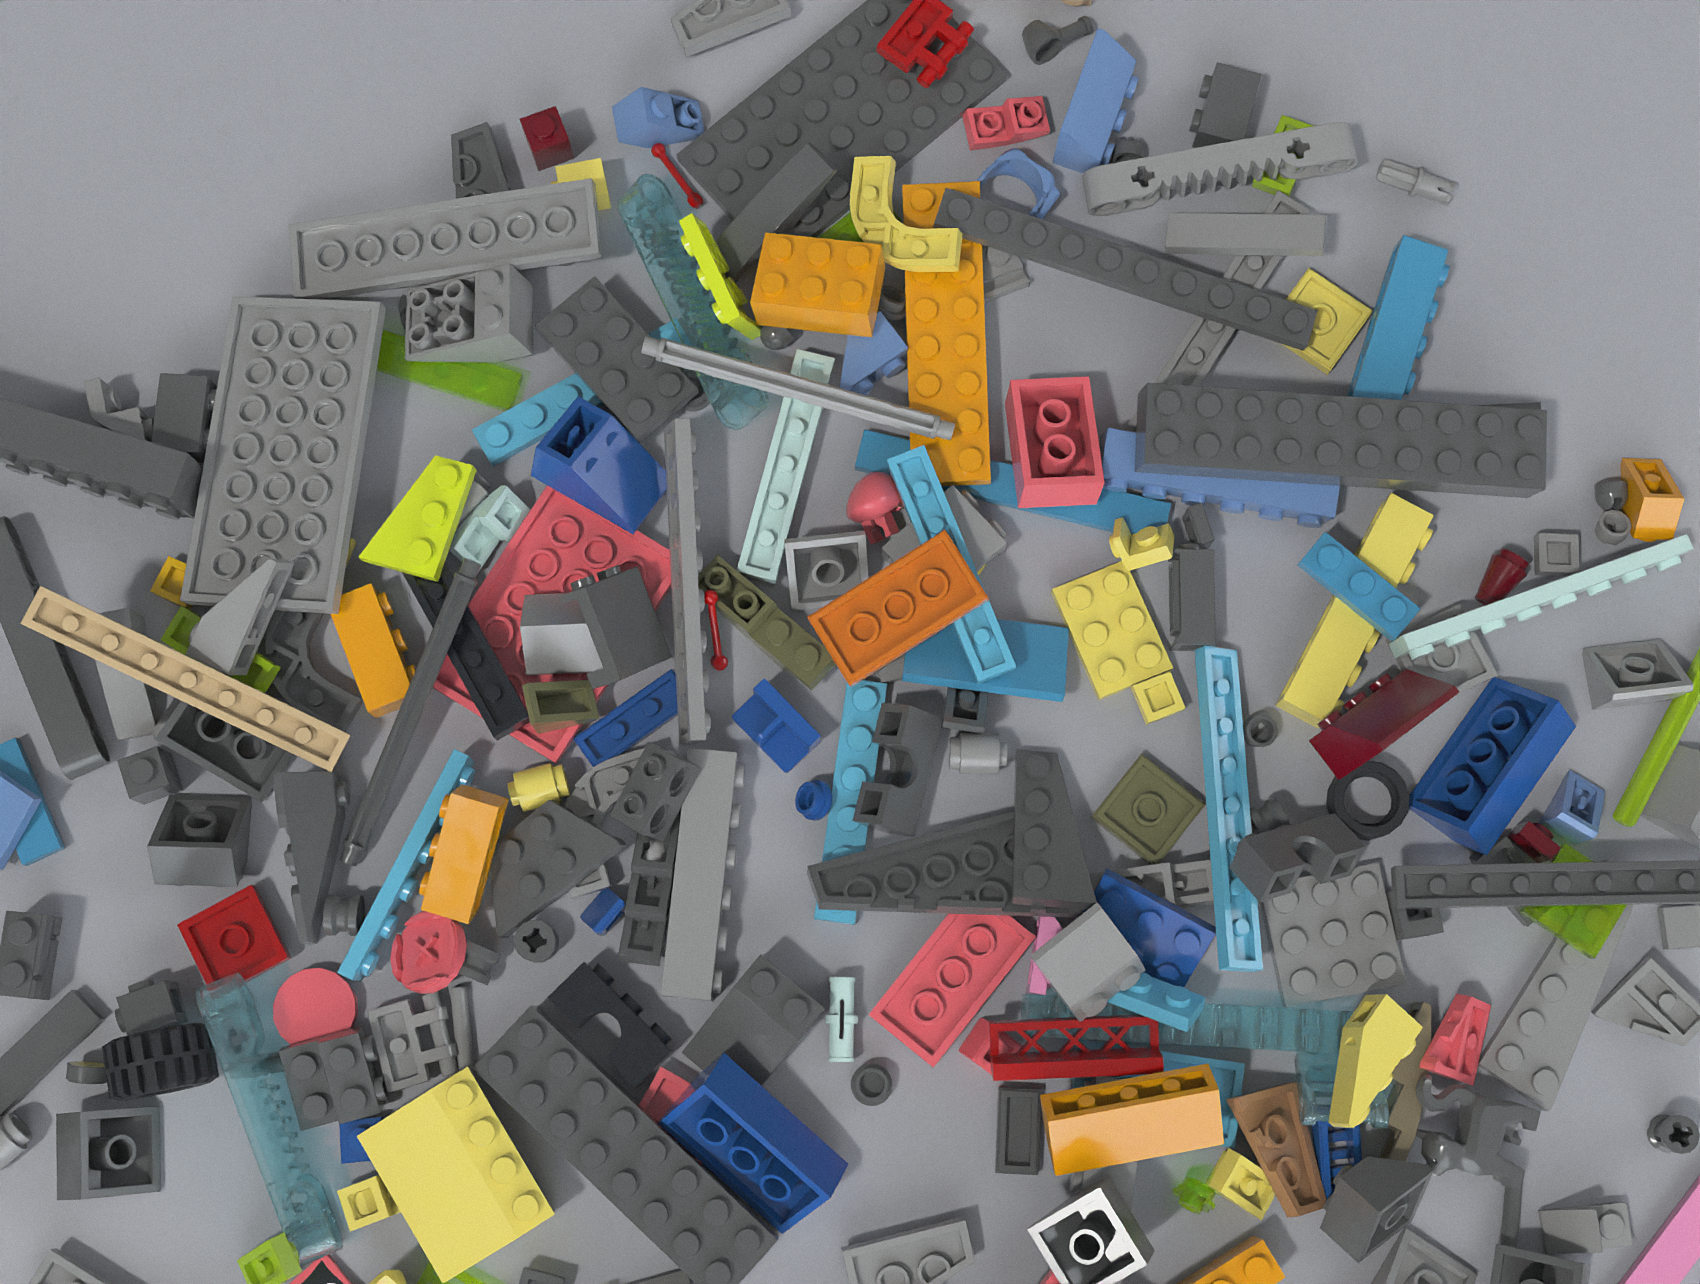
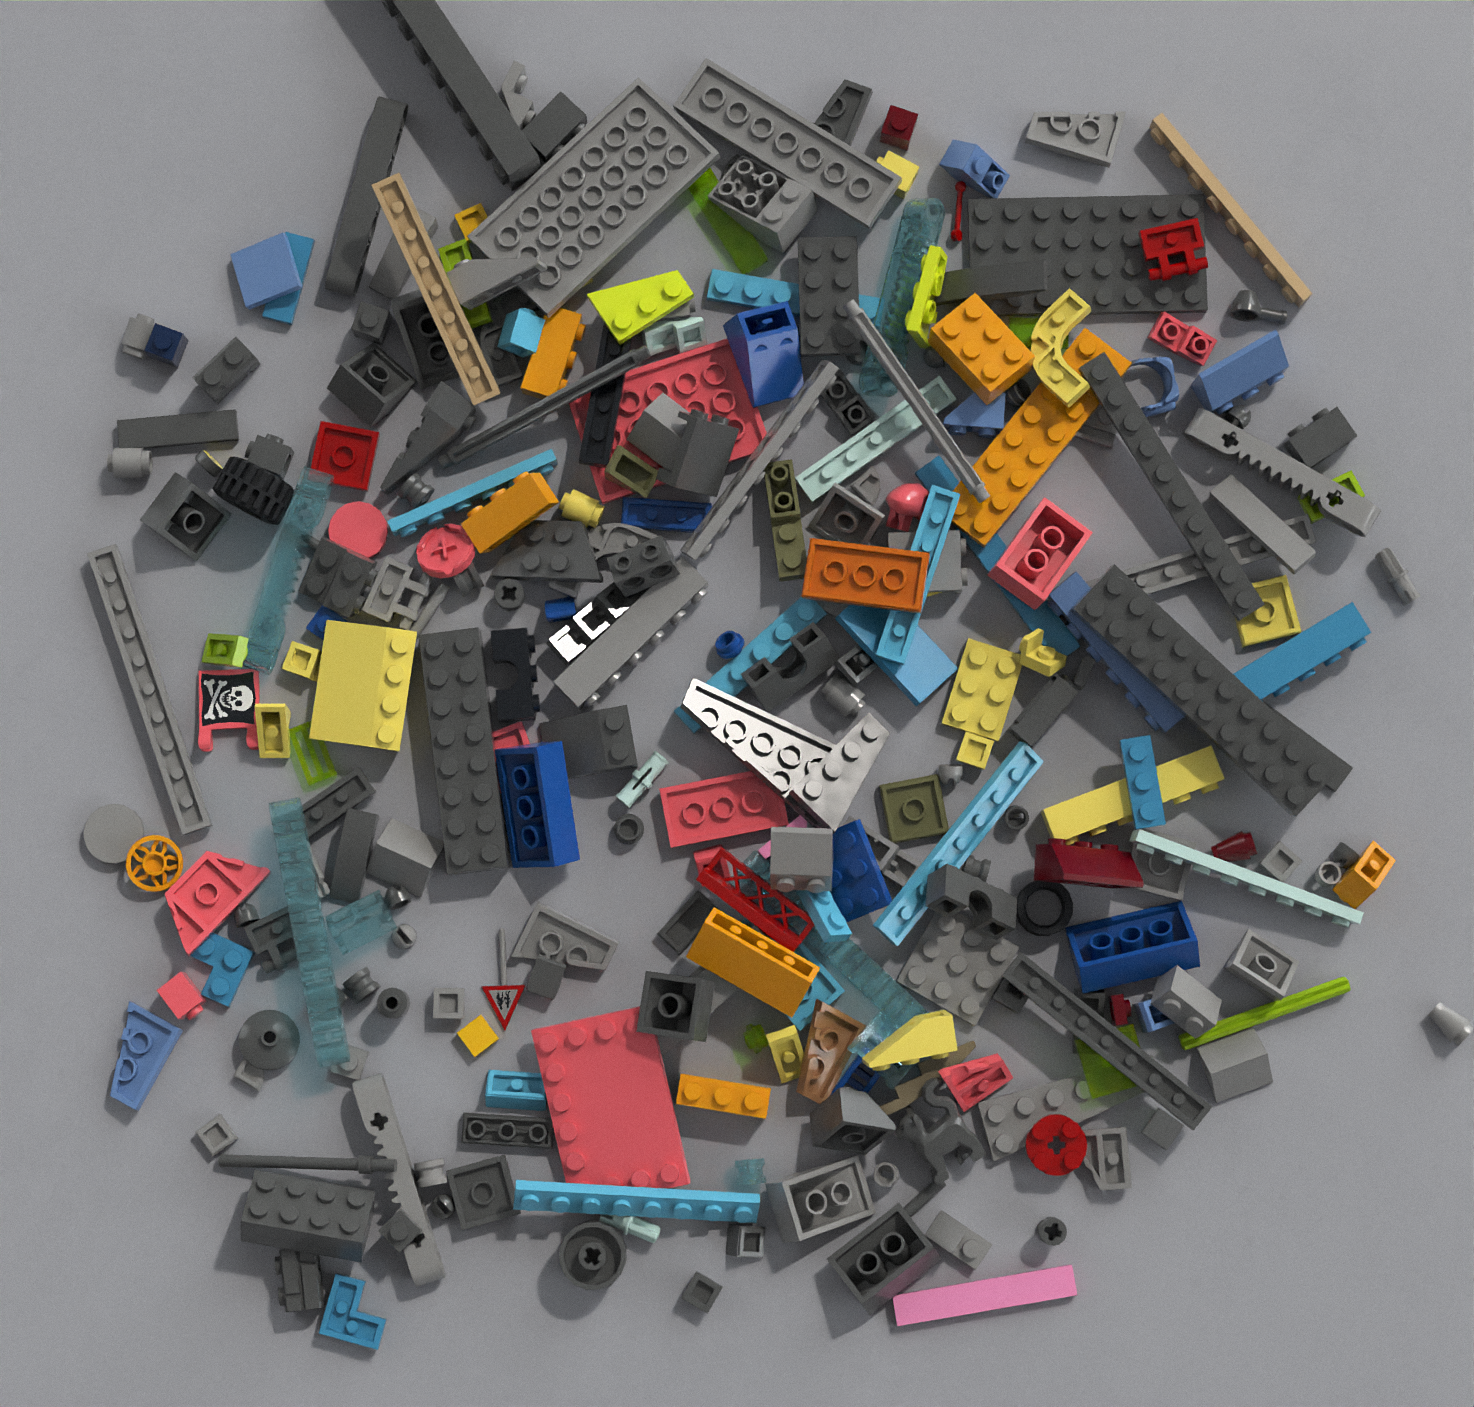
camera: 40 degrees right, 5 degrees up
(321, 653) = (521, 332): none -> medium azure brick
(718, 660) = (742, 521): red hinge -> none
(728, 455) = (847, 404): none -> dark grey slope
(776, 727) = (742, 586): blue panel -> none
(817, 518) = (868, 486): none -> light grey tile
(1152, 740) = (950, 771): none -> light grey hinge
(1458, 1232) = (883, 1181): none -> light grey hinge
(1575, 1038) = (1043, 1133): none -> red plate
(1598, 774) = (1186, 1002): none -> light grey brick

